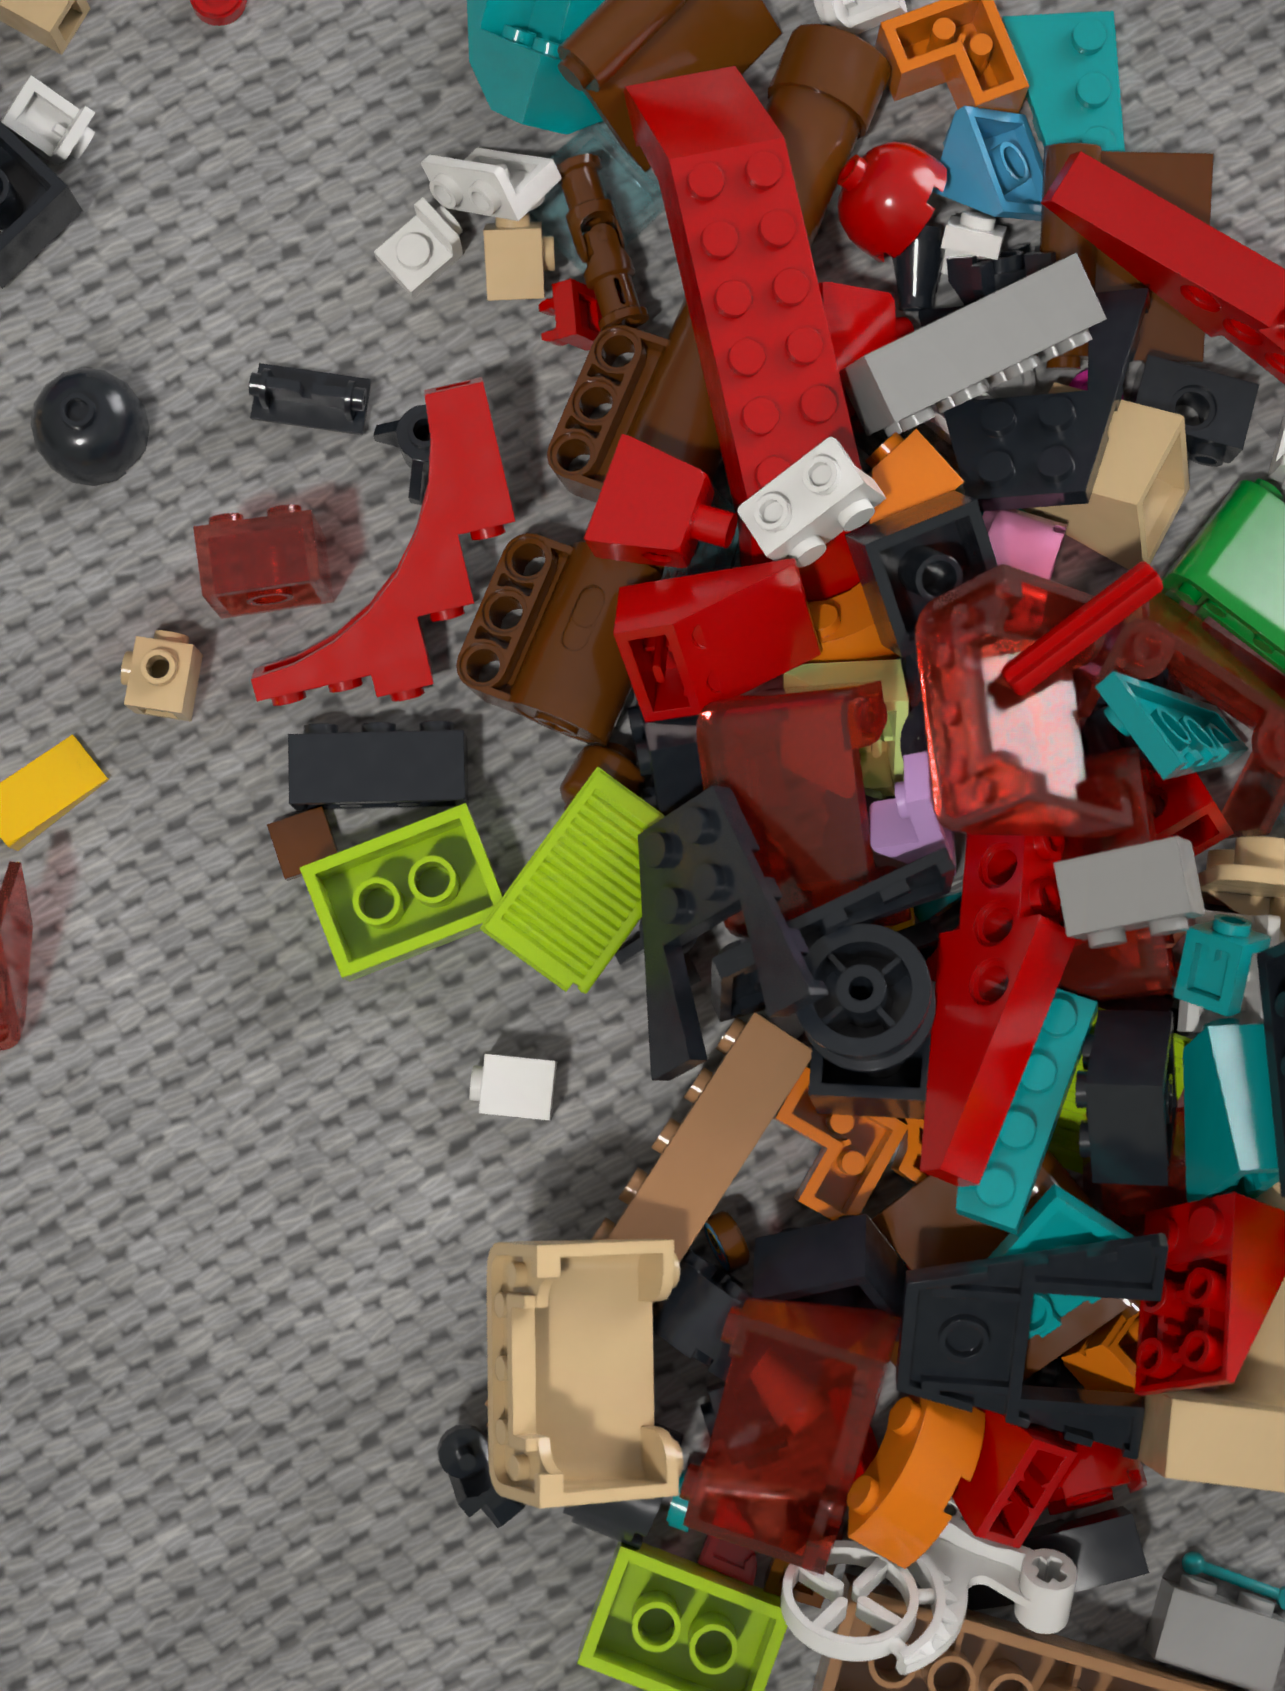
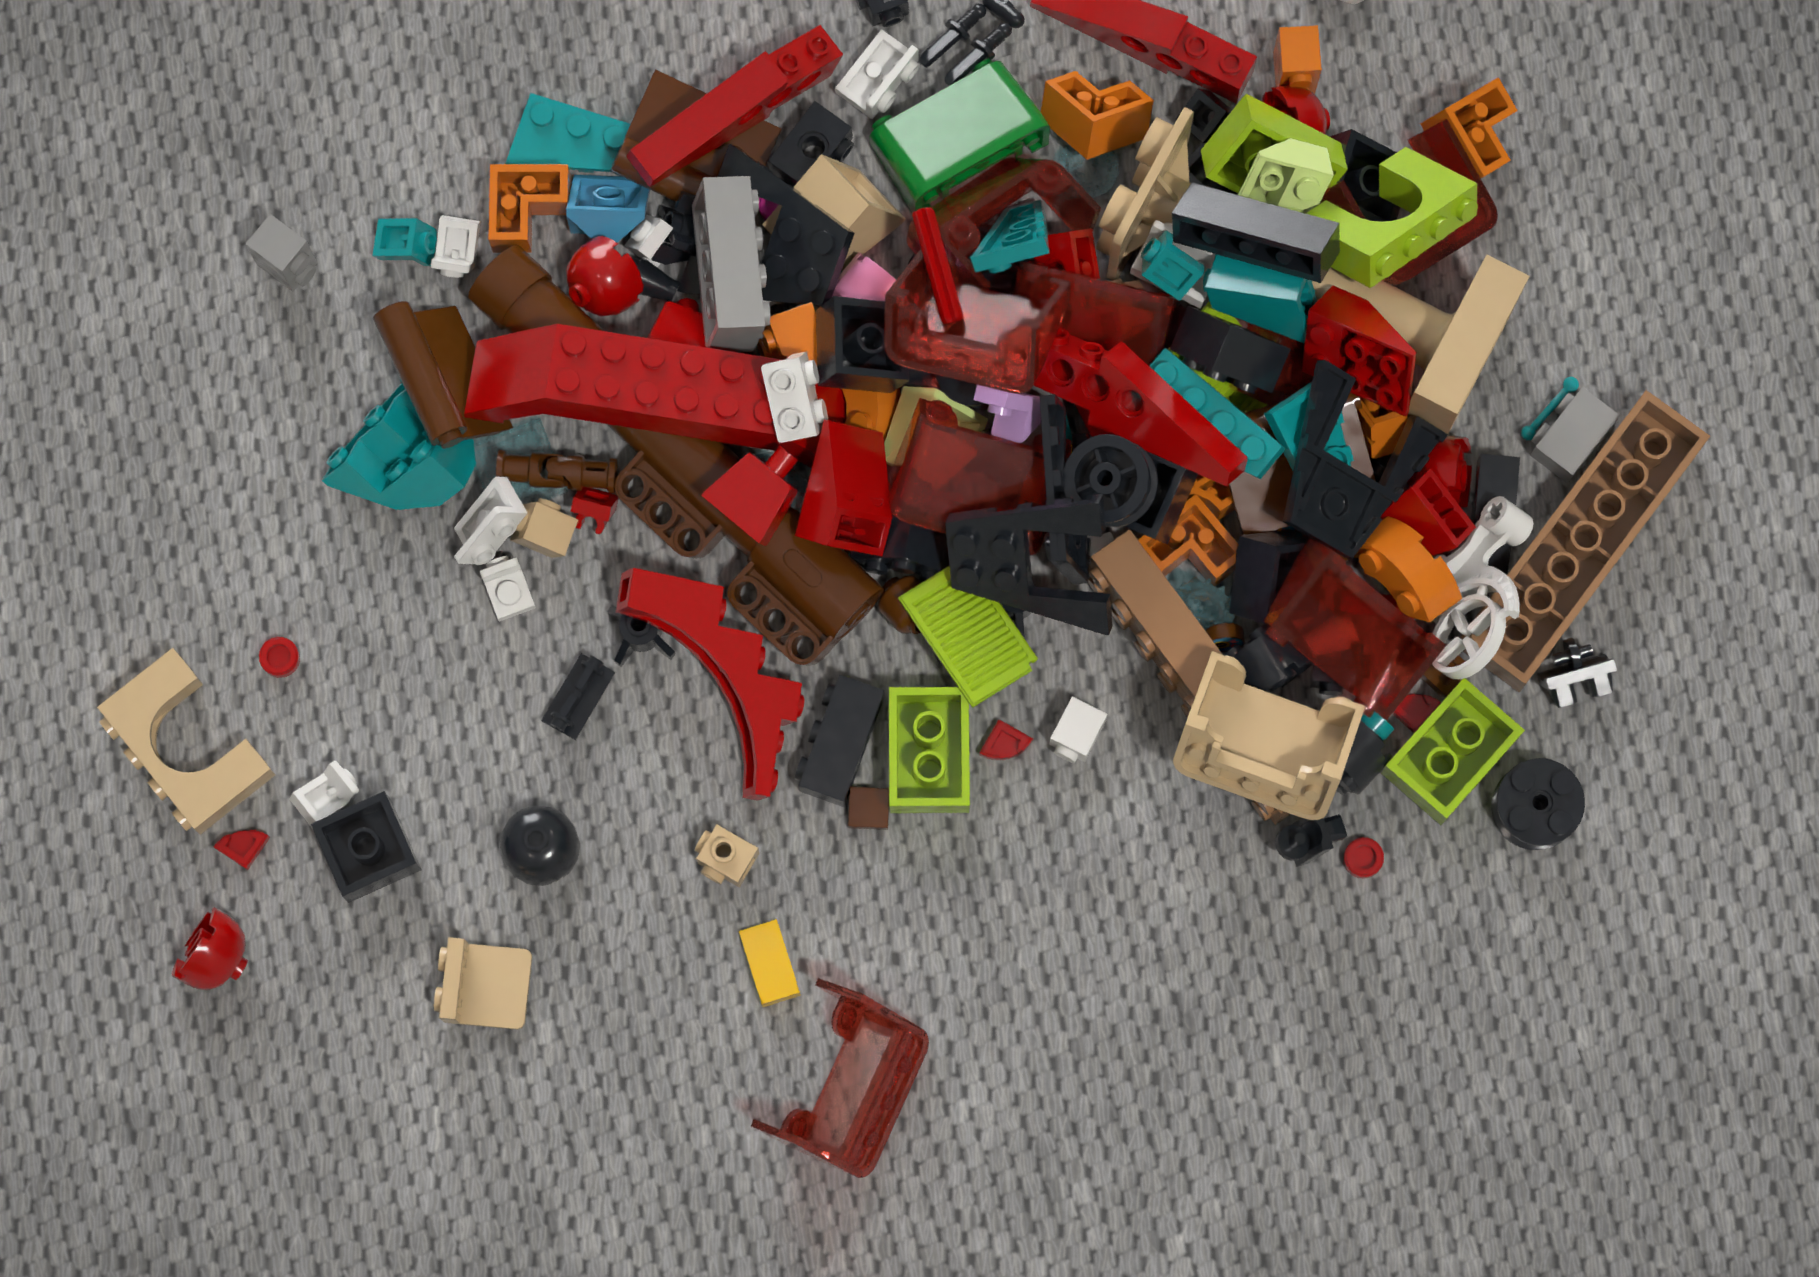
camera: 65 degrees left, 5 degrees down
(263, 562) = (681, 758): clear red brick -> none
(465, 992) = (1005, 742): none -> red tile
(491, 1554) = (1363, 857): none -> red tile
(752, 1215) = (1197, 591): none -> clear light blue gear
(1130, 891) = (1108, 299): light grey brick -> none

